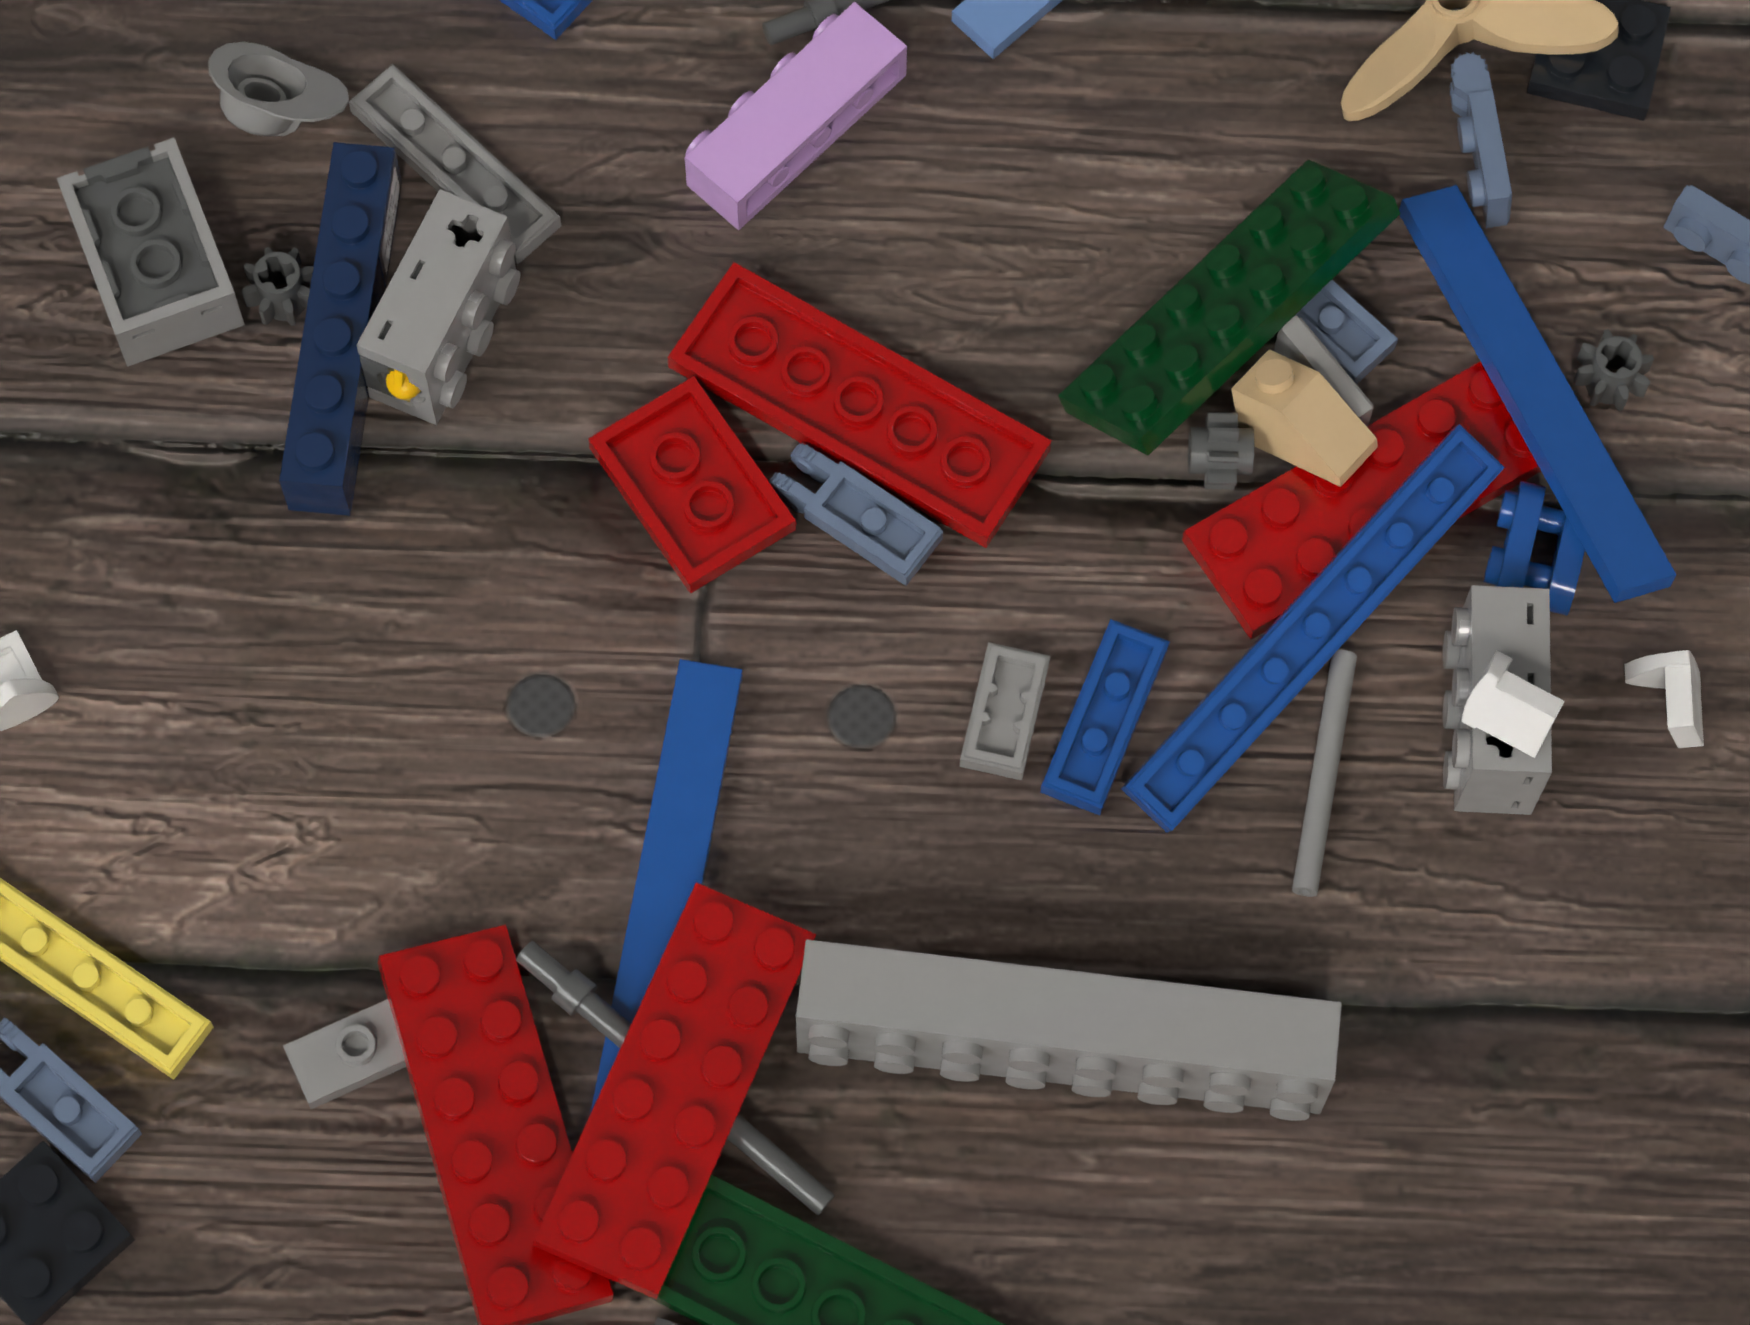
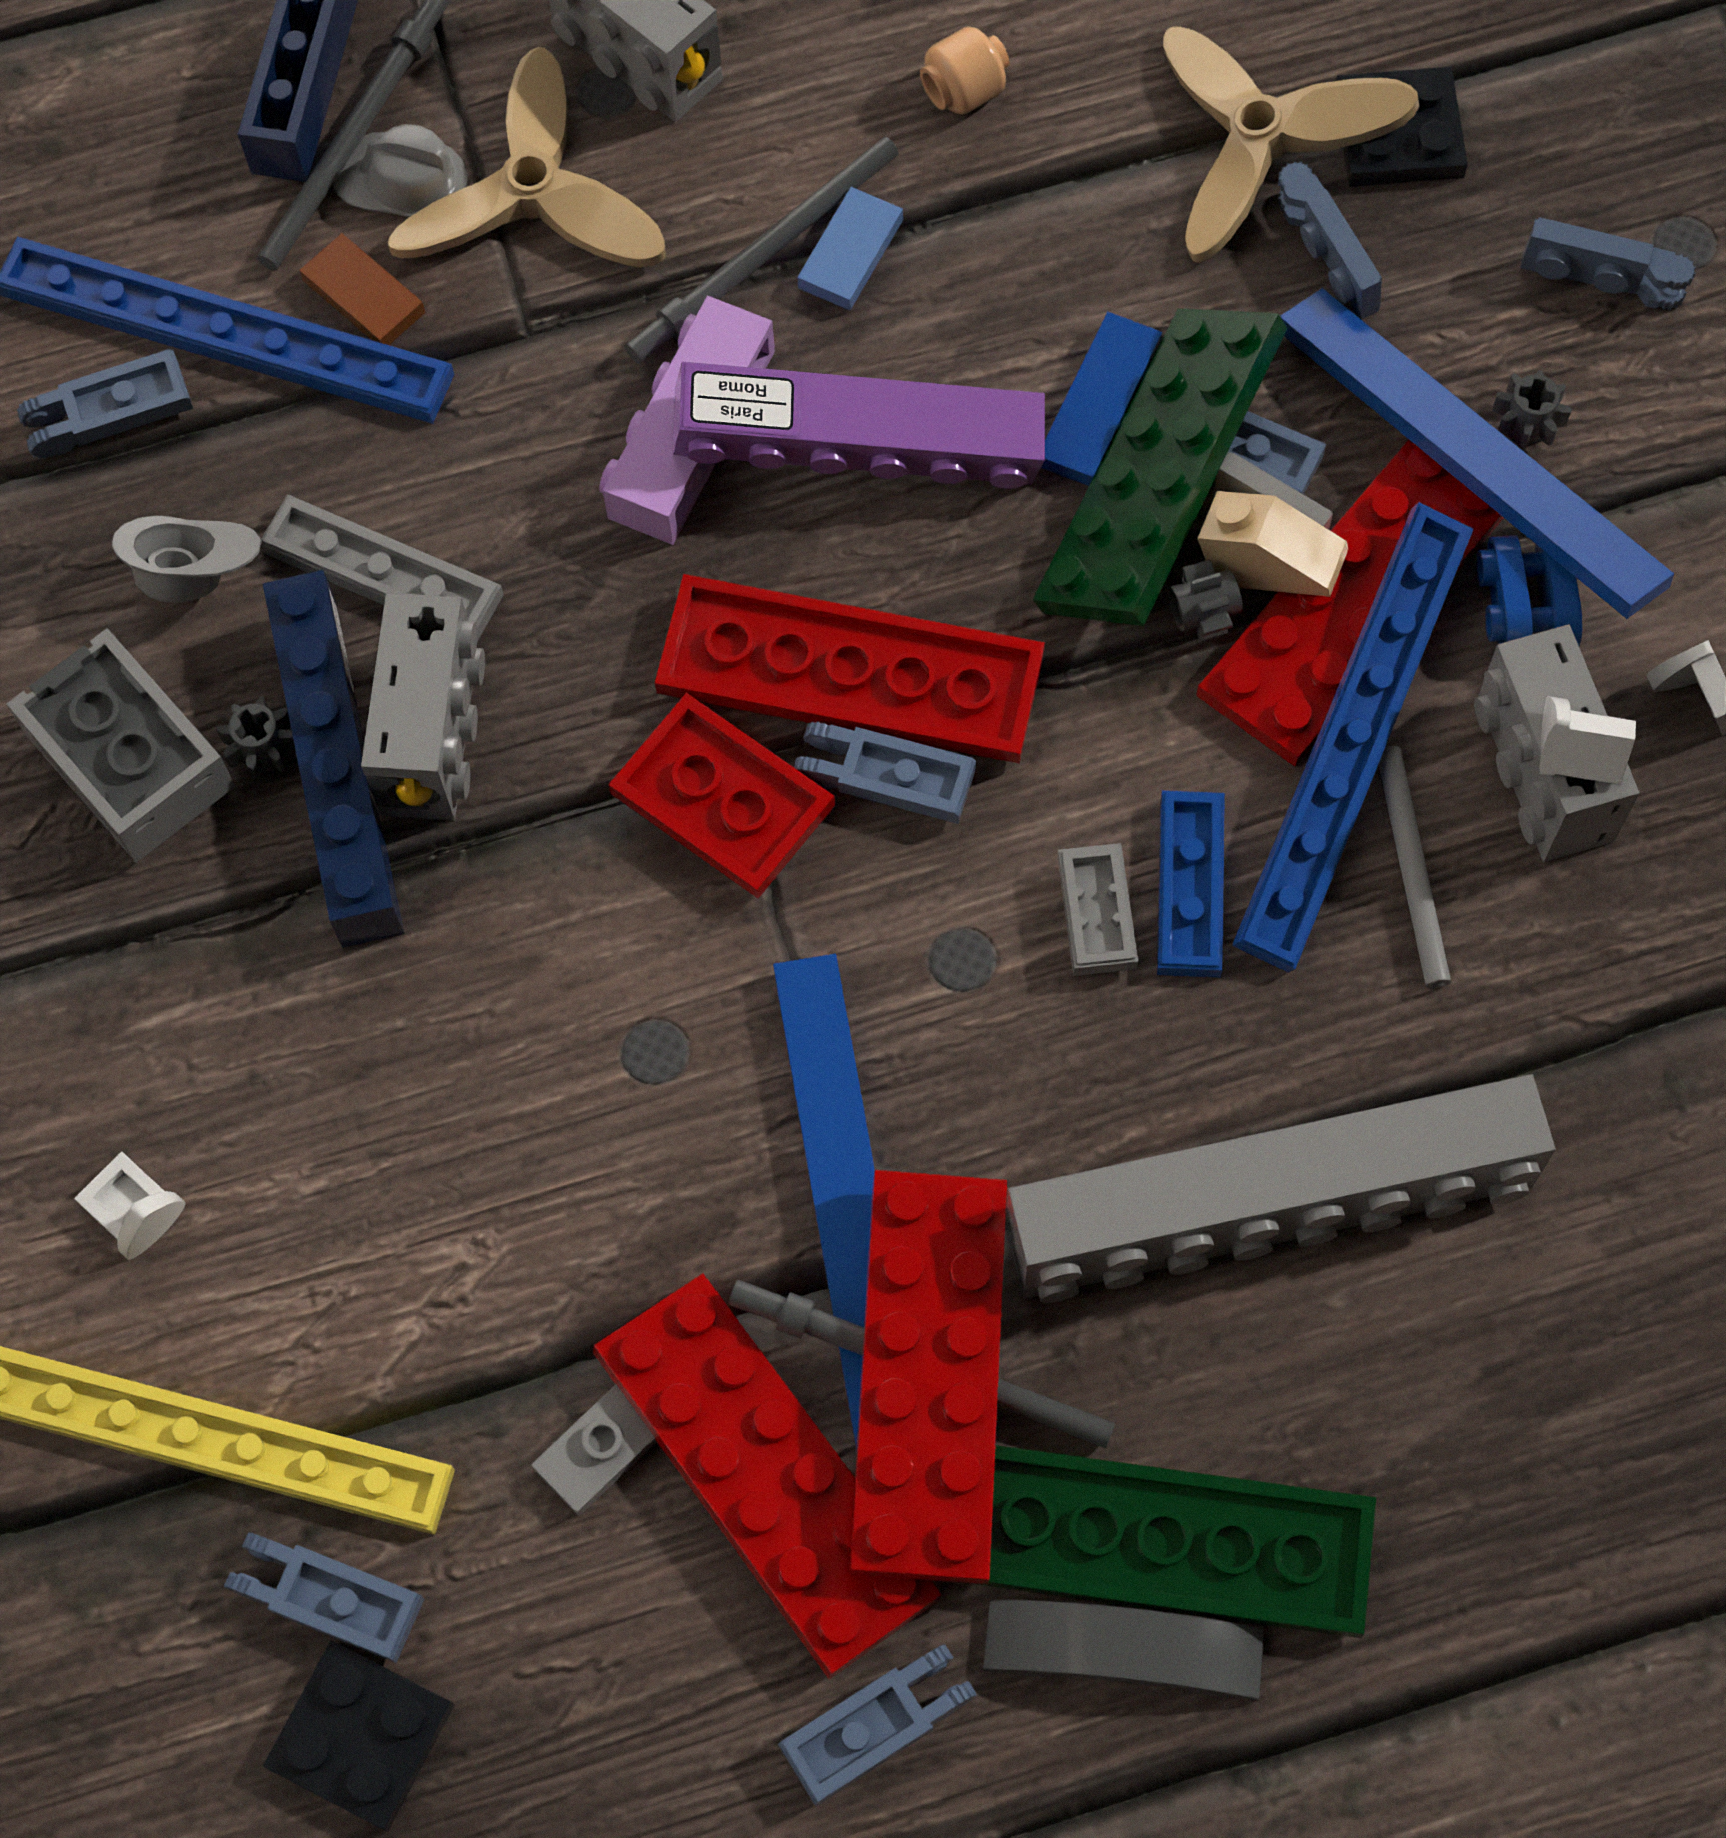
camera: 15 degrees left, 0 degrees up
(950, 174) = (858, 424): none -> medium lavender brick
(1198, 221) = (1099, 397): none -> blue tile

